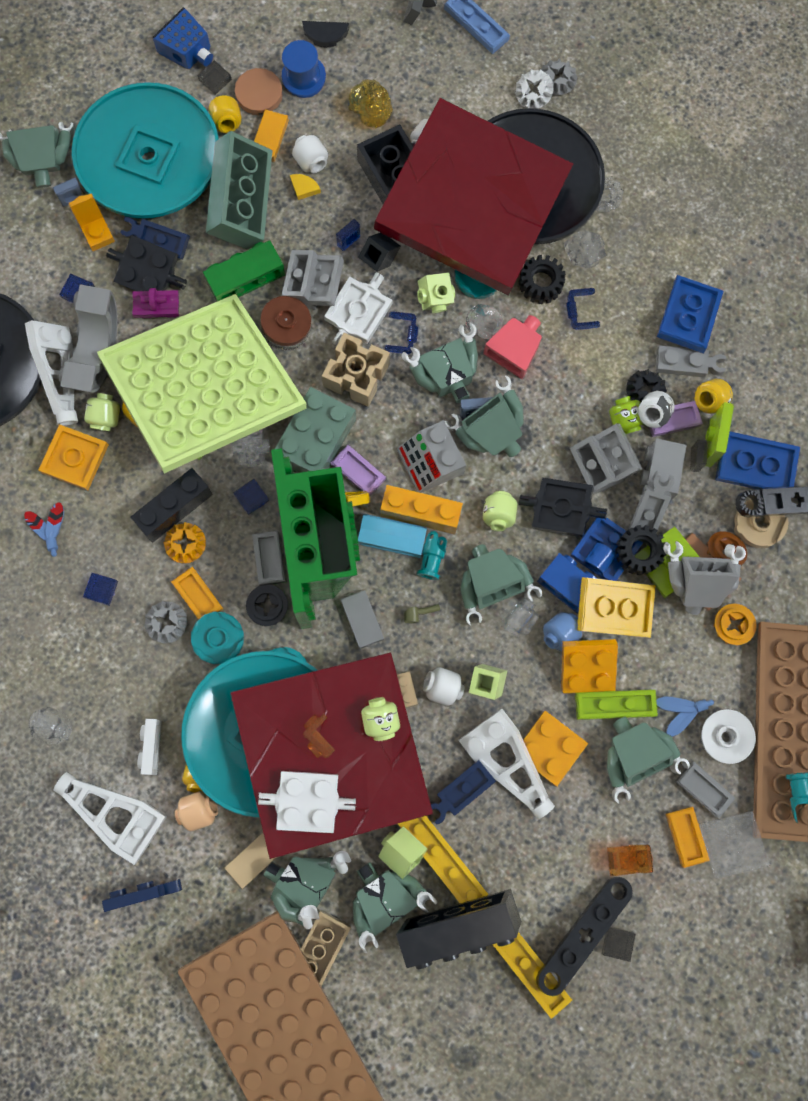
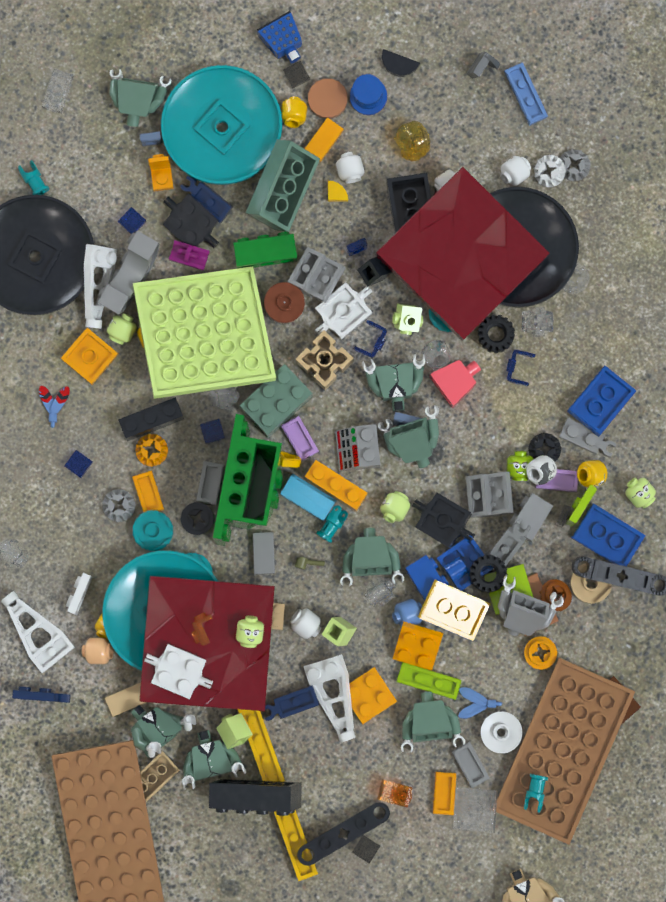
camera: 25 degrees right, 5 degrees up
(496, 98) = (515, 170): none -> white head
(776, 400) = (640, 492): none -> yellowish green head

